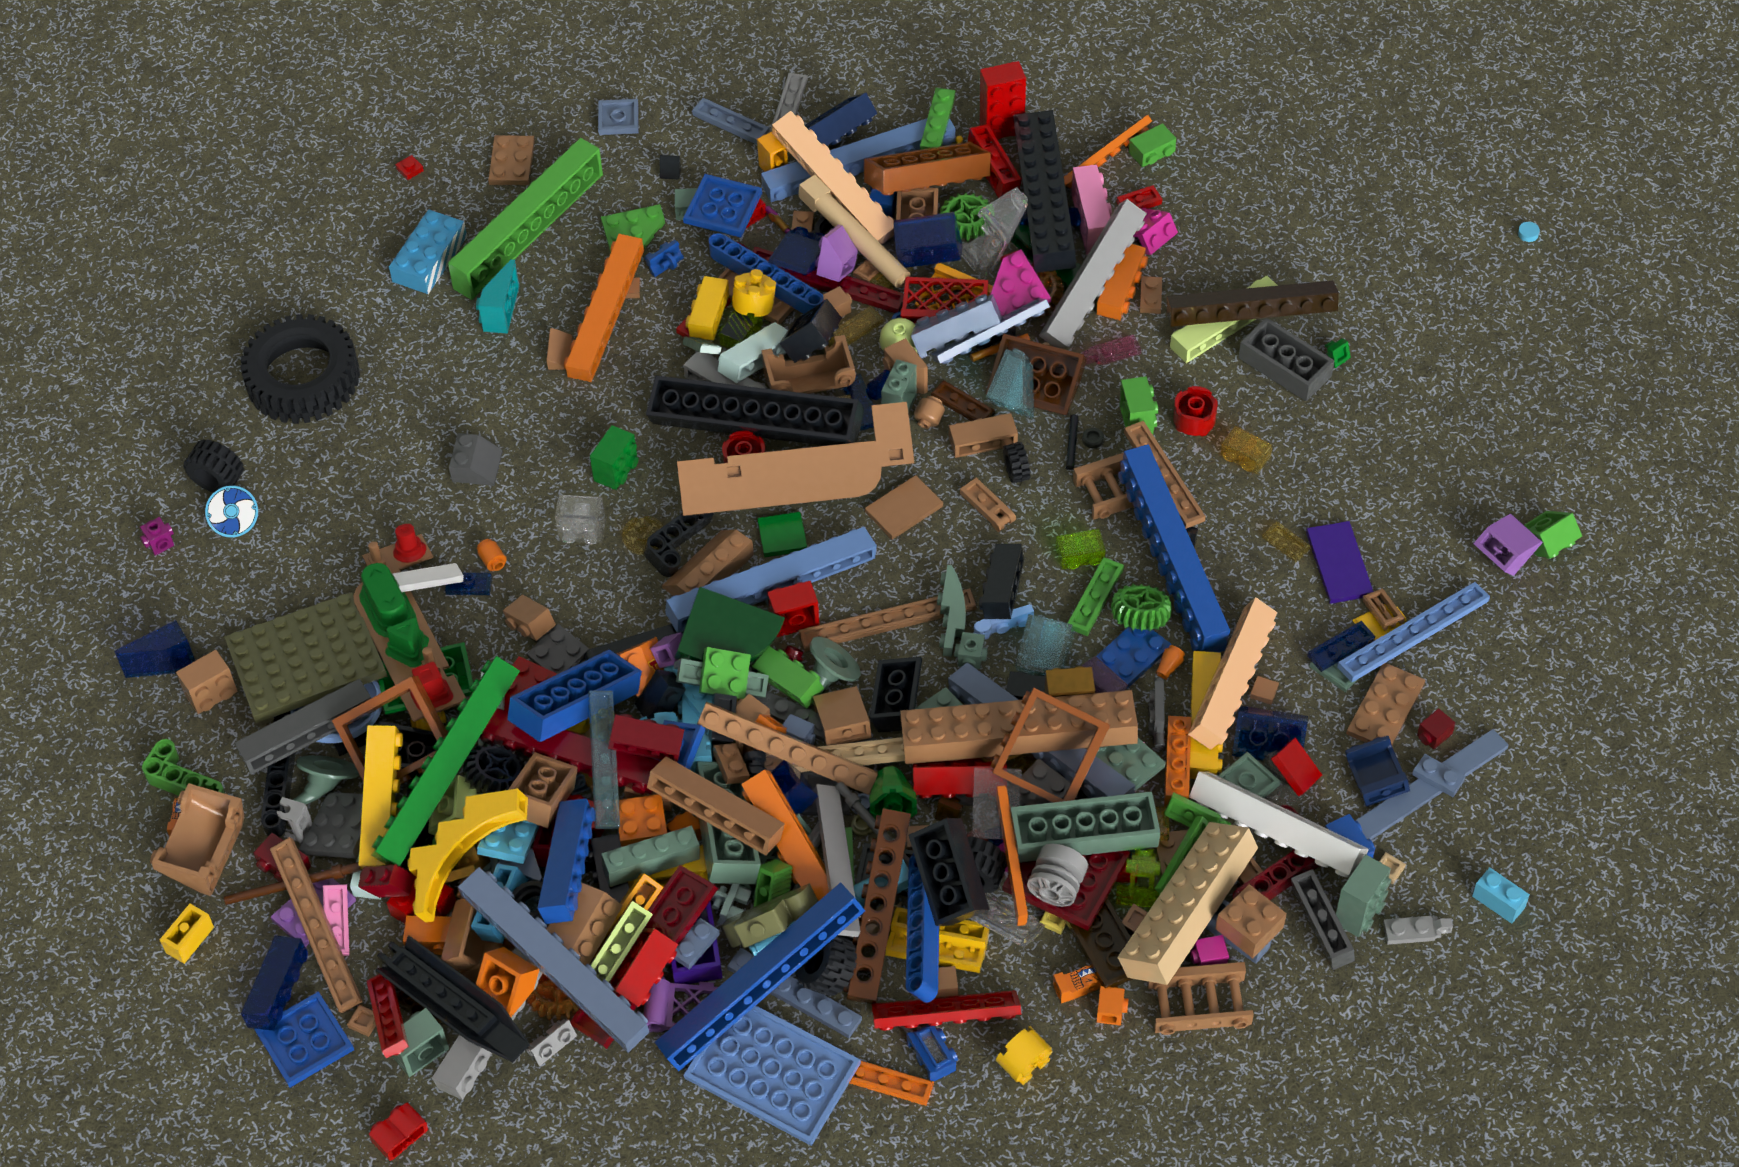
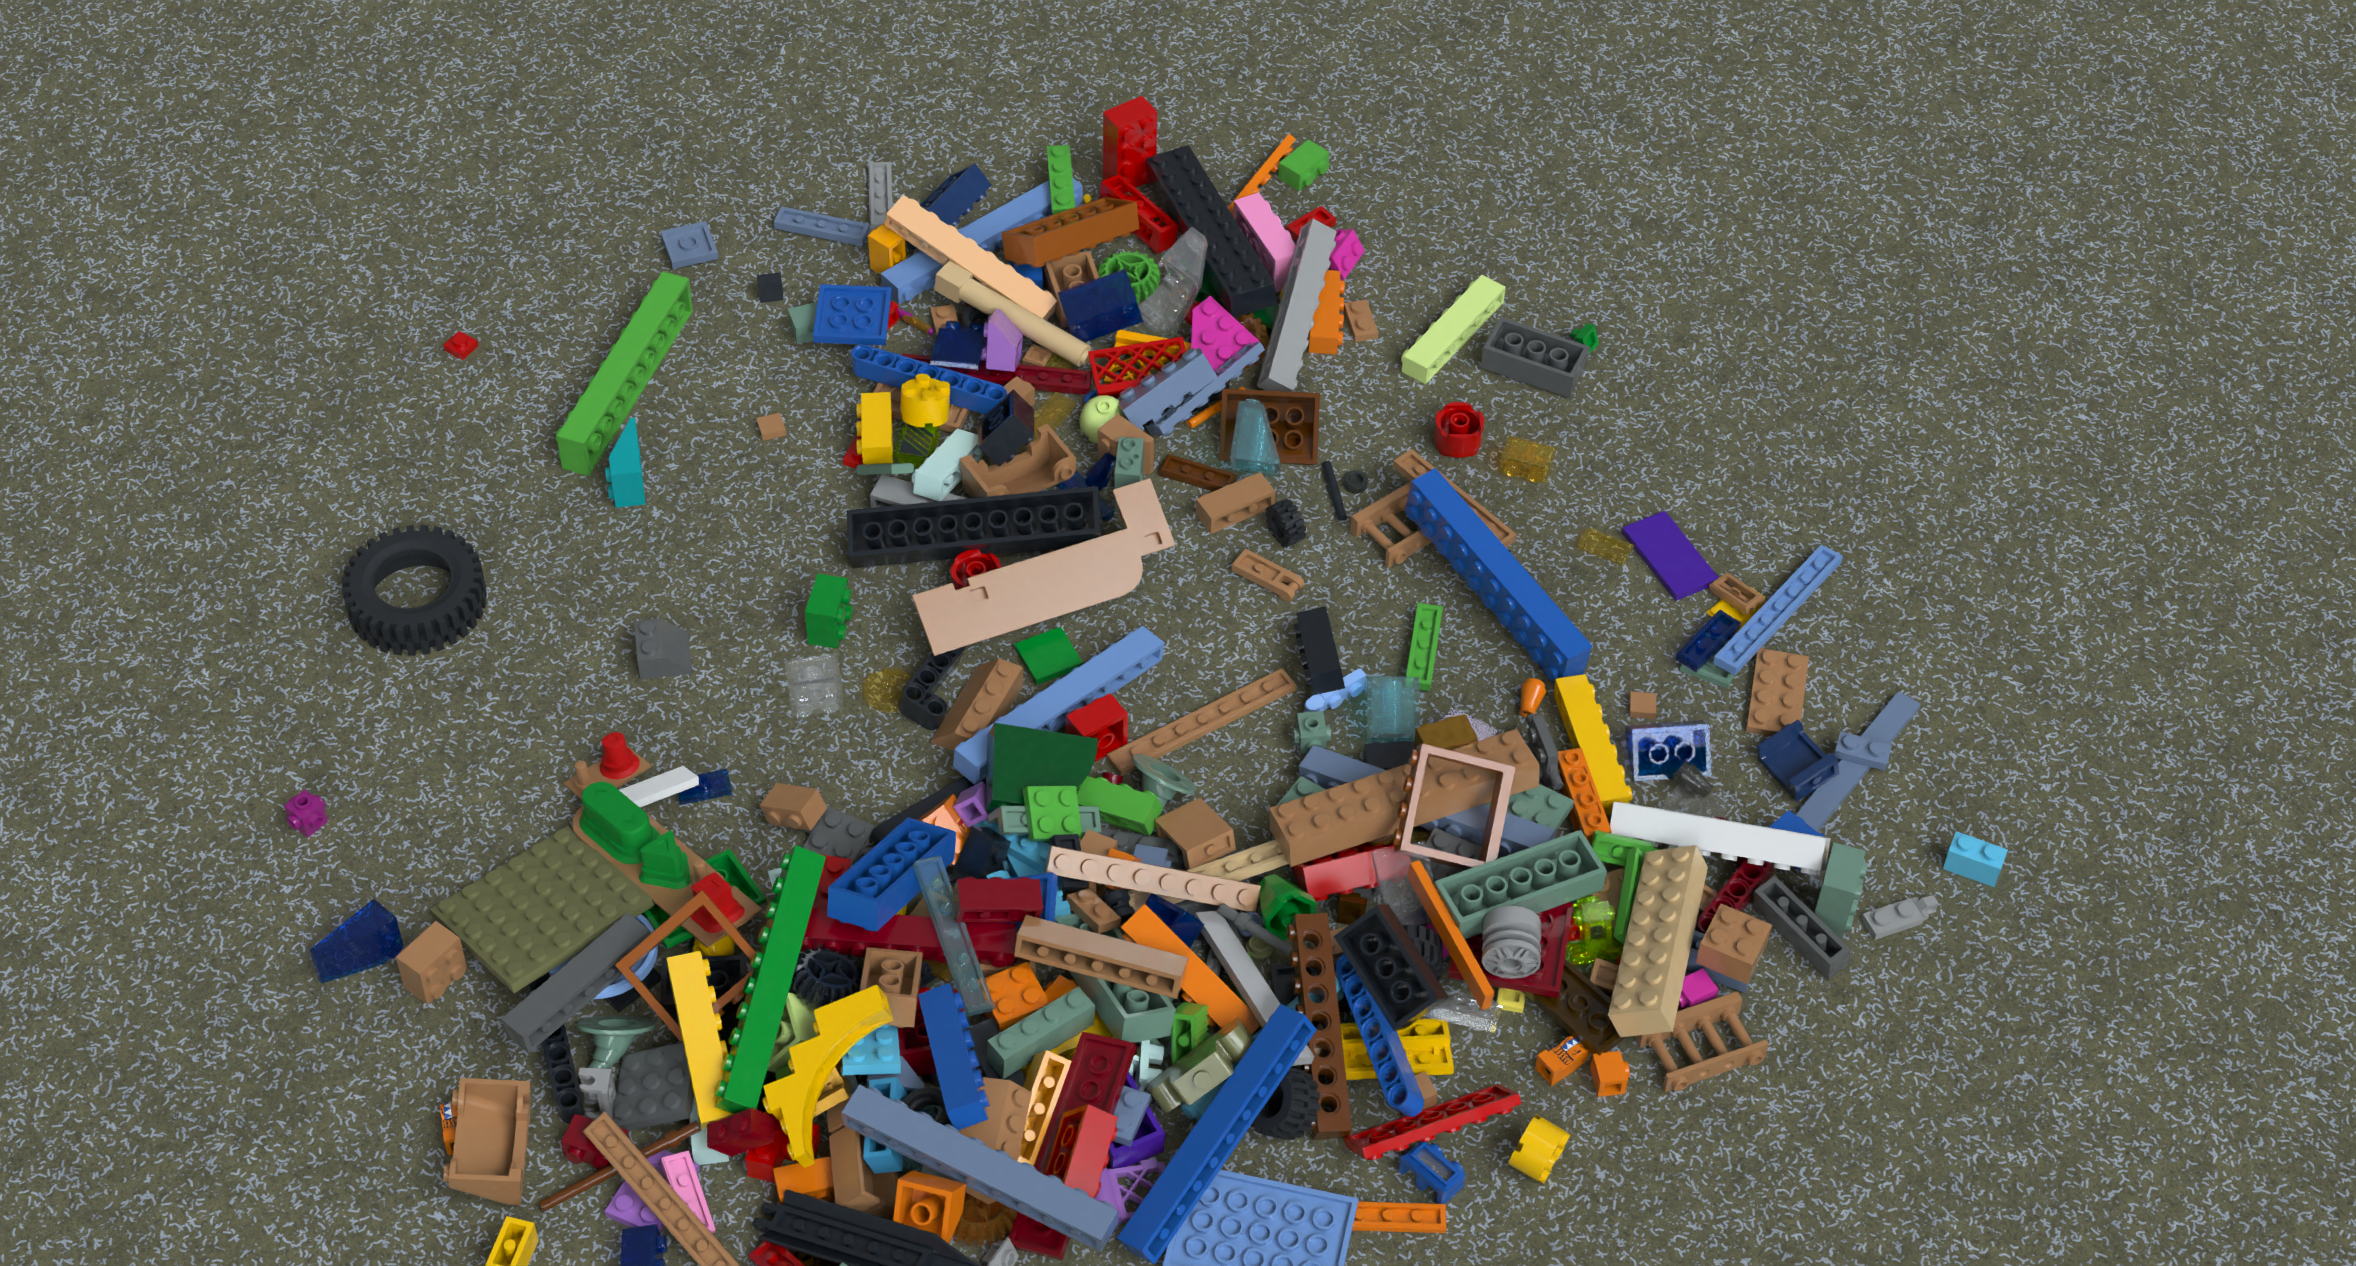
camera: 20 degrees left, 5 degrees down
(168, 770) = (418, 1075): bright green beam -> none
(213, 465) = (351, 719): black tyre -> none
(231, 511) = (388, 766): shield -> none
(428, 251) = (520, 432): dark azure brick -> none
(491, 555) = (720, 748): orange brick -> none
(511, 160) = (580, 315): medium nougat plate -> none
(558, 349) = (714, 509): medium nougat slope -> none
(604, 308) = (753, 452): orange brick -> none
(620, 941) = (1046, 1126): yellowish green brick -> none
(636, 223) = (750, 366): bright green plate -> none
(664, 258) = (803, 384): blue hips -> none
(808, 1001) = (1267, 1150): sand blue plate -> none
(894, 691) = (1248, 793): black slope -> none
(903, 507) = (1174, 598): medium nougat tile -> none
(929, 412) = (1168, 489): medium nougat head -> none
(953, 608) = (1276, 691): sand green slope -> none
(1080, 549) = (1388, 600): clear neon green brick -> none
(1113, 350) = (1344, 385): clear pink hinge -> none
(1133, 653) = (1488, 694): blue plate -> none
(1137, 402) = (1394, 433): bright green brick -> none
(1141, 607) = (1481, 646): bright green gear -> none
(1233, 674) = (1609, 693): light nougat brick -> none
(1251, 776) = (1666, 794): sand green tile -> none
(1252, 303) = (1480, 304): dark brown brick -> none
(1296, 767) = (1713, 775): red tile -> none
(1435, 729) = (1840, 704): dark red brick -> none
(1508, 544) = (1843, 497): medium lavender slope -> none
(1528, 231) = (1734, 179): medium azure tile -> none
(1556, 532) = (1878, 478): bright green slope -> none

